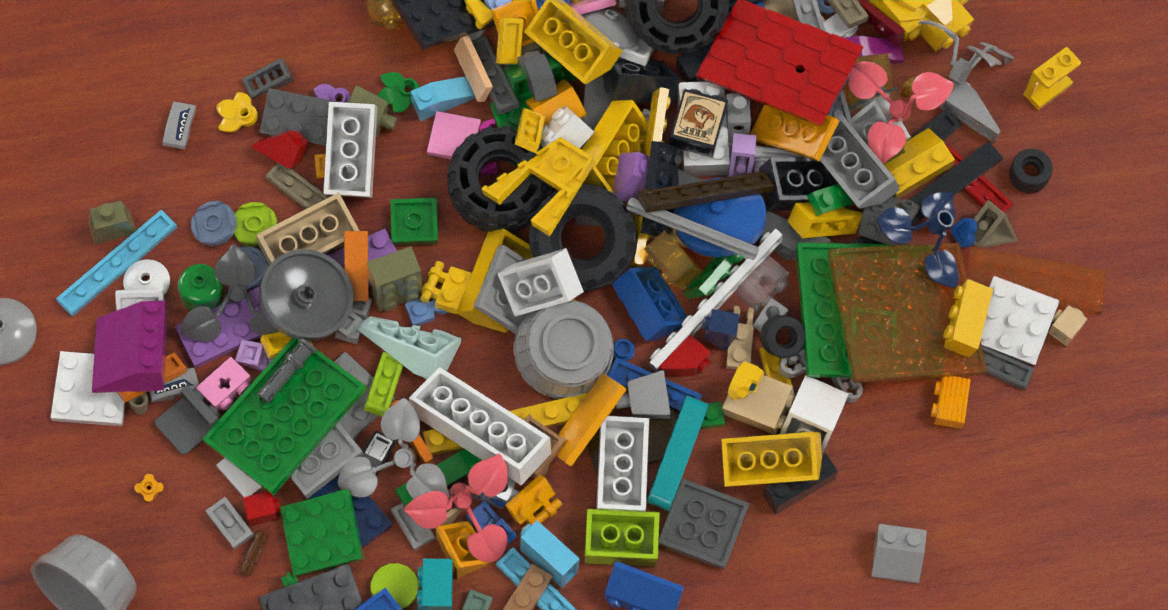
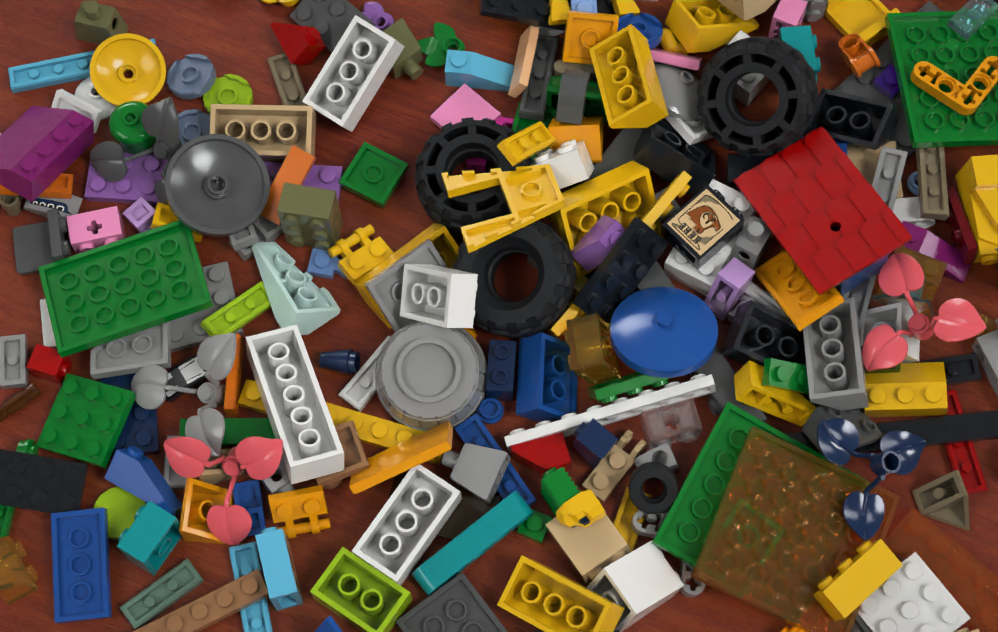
camera: 40 degrees right, 0 degrees up
(171, 234) = (124, 54): none -> yellow dish
(293, 362) = (161, 241): dark grey pin -> none
(394, 550) = (142, 479): none -> blue slope
(486, 377) = (342, 361): none -> dark blue cone
(509, 40) = (570, 49): yellow tile -> none
(514, 385) = (362, 385): none -> white tile
(615, 314) = (501, 370): none -> dark blue brick
(695, 230) = (622, 327): light grey axle -> none
(705, 191) = (661, 297): dark brown tile -> none
(716, 378) = (557, 488): none -> green brick
(964, 232) = (915, 489): blue tile -> none

